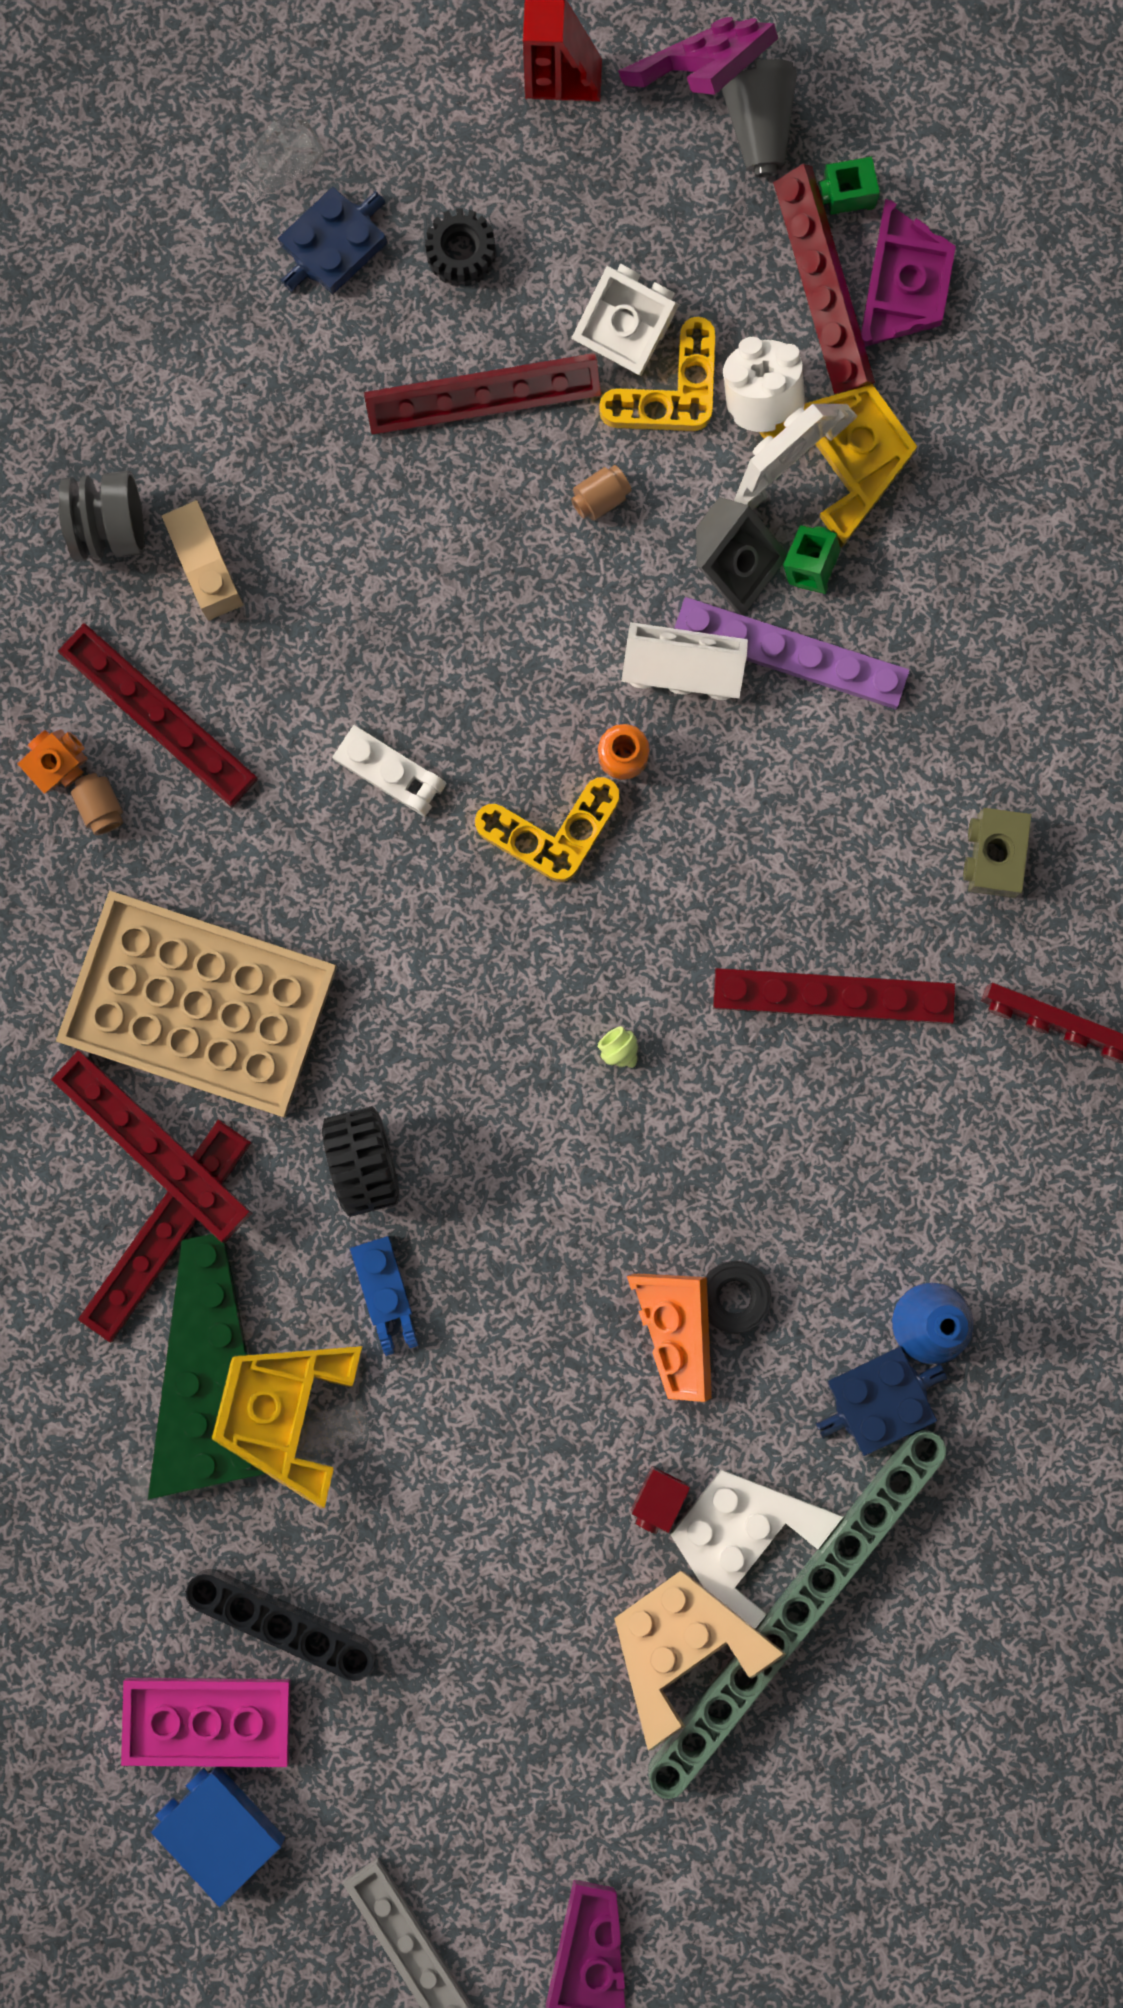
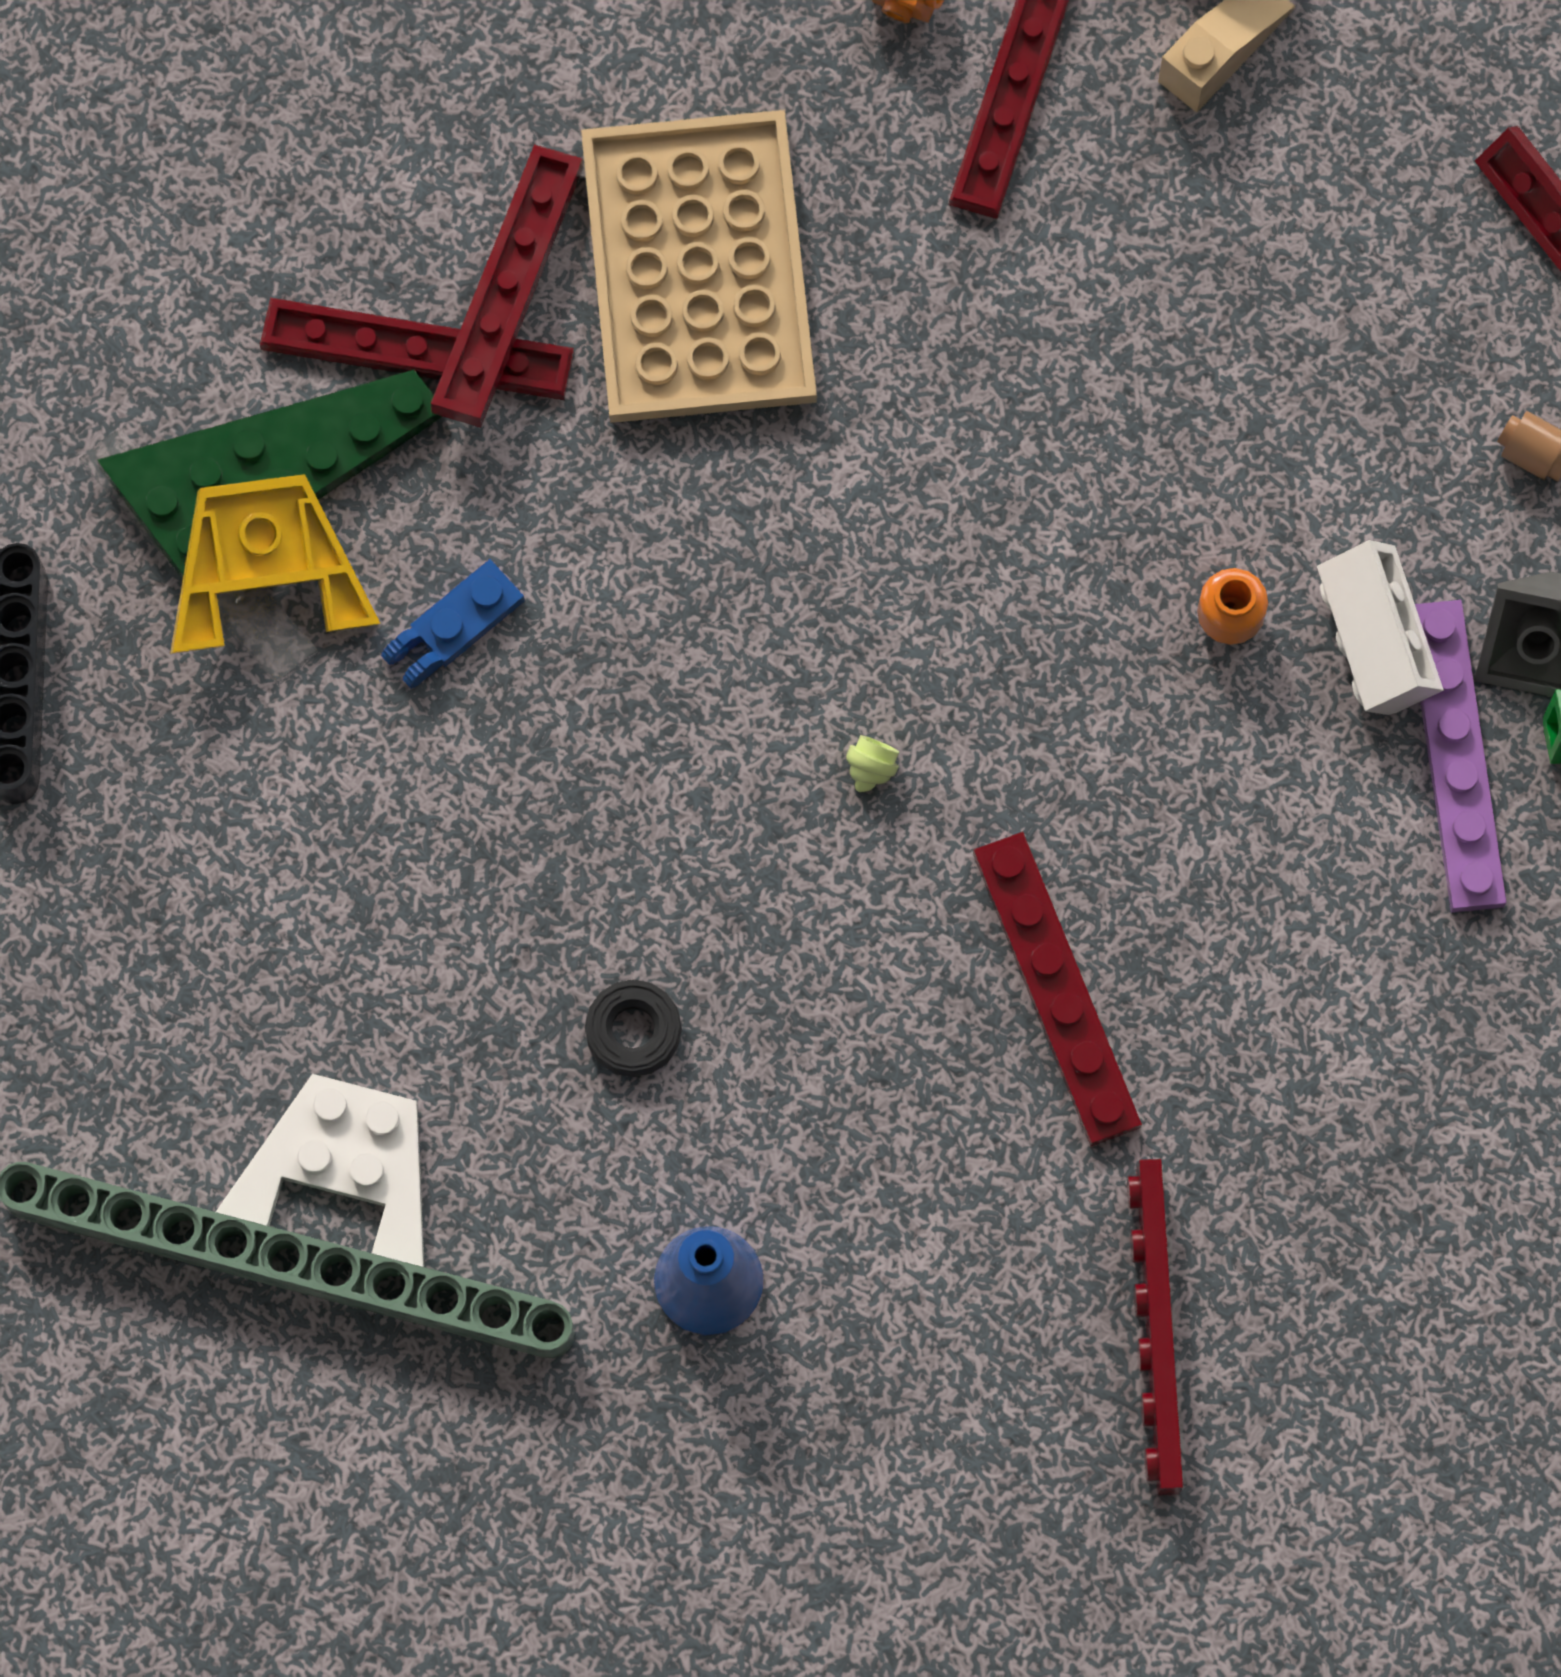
camera: 65 degrees right, 10 degrees down
(97, 804) = (879, 54): medium nougat brick -> none
(360, 1161) = (595, 515): black tyre -> none
(388, 770) = (1079, 355): white plate -> none
(563, 841) = (1092, 589): yellow beam -> none
(659, 1501) = (347, 1040): dark red brick -> none
(674, 1633) = (191, 1122): tan wing -> none
(679, 1327) = (569, 972): orange wing -> none
(881, 1401) = (585, 1257): dark blue plate -> none
(1011, 833) = (1306, 1127): olive brick -> none

